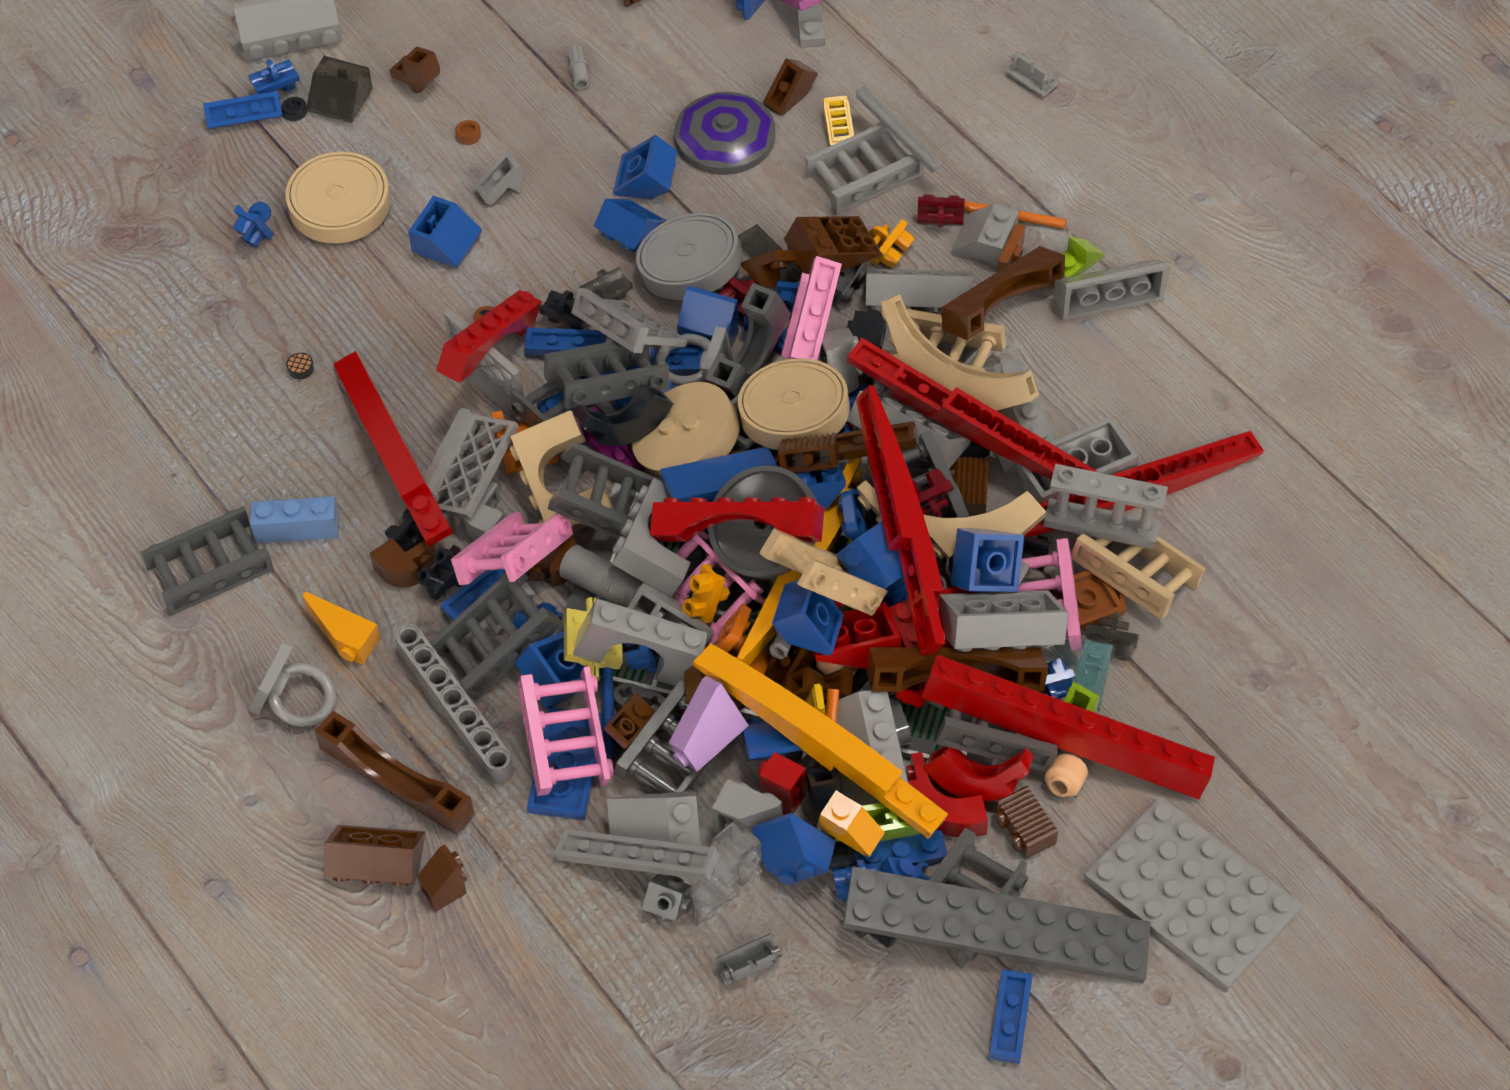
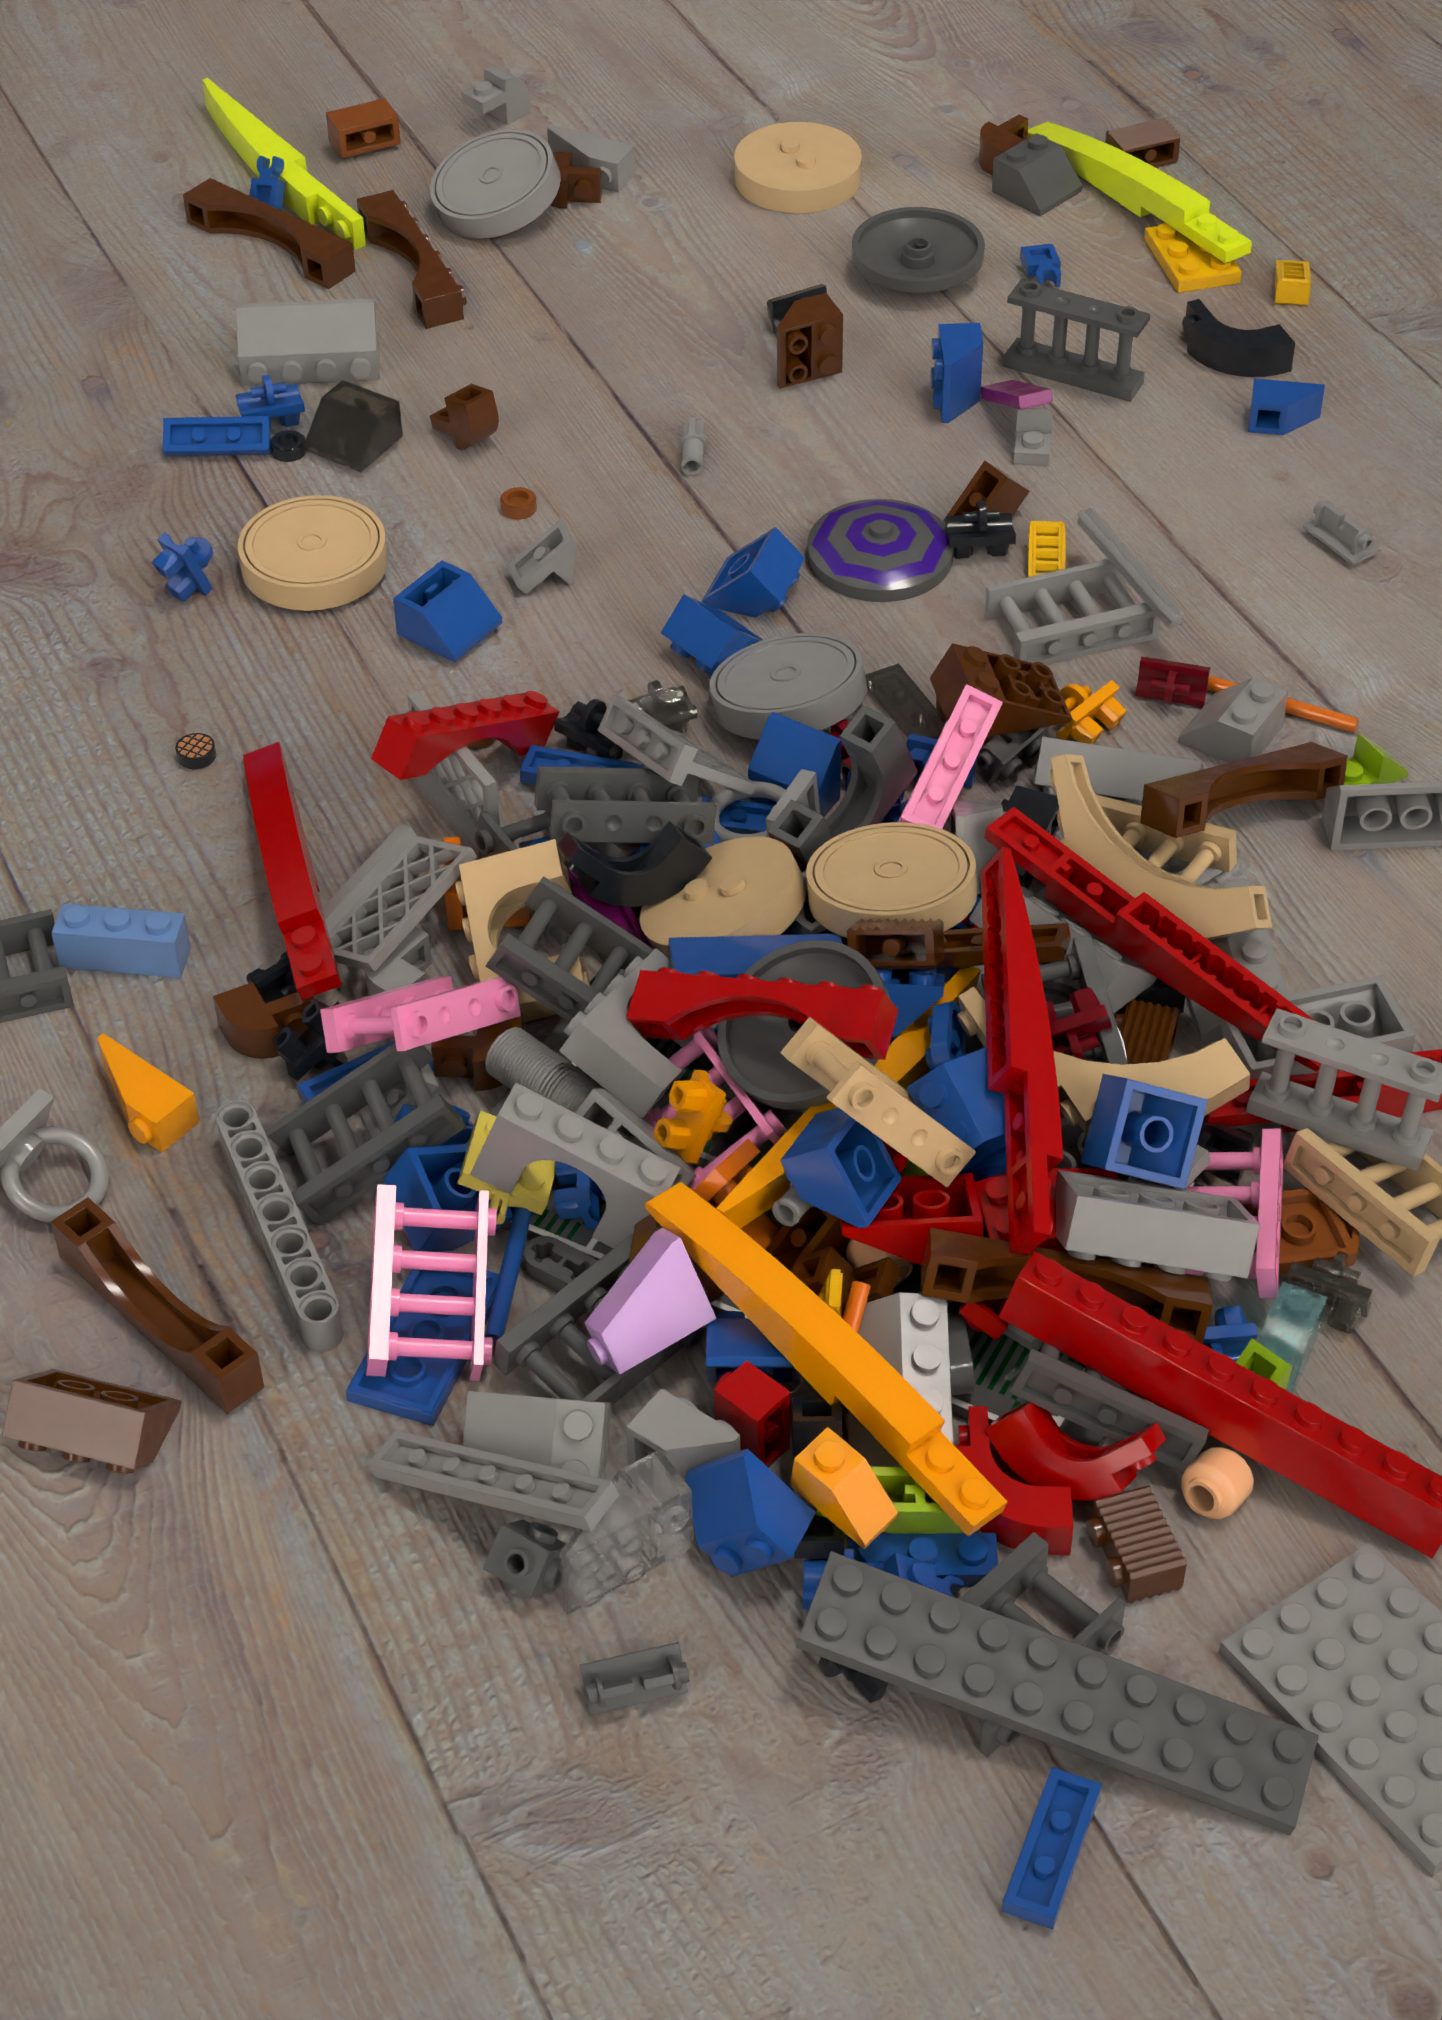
camera: 10 degrees right, 10 degrees down
(442, 878) = (183, 1468): reddish brown slope -> none
(629, 720) = (532, 1282): reddish brown slope -> none
(766, 266) = (907, 705): reddish brown slope -> none
(791, 110) = (980, 529): none -> black hips
(1013, 249) = (1274, 736): dark orange plate -> none

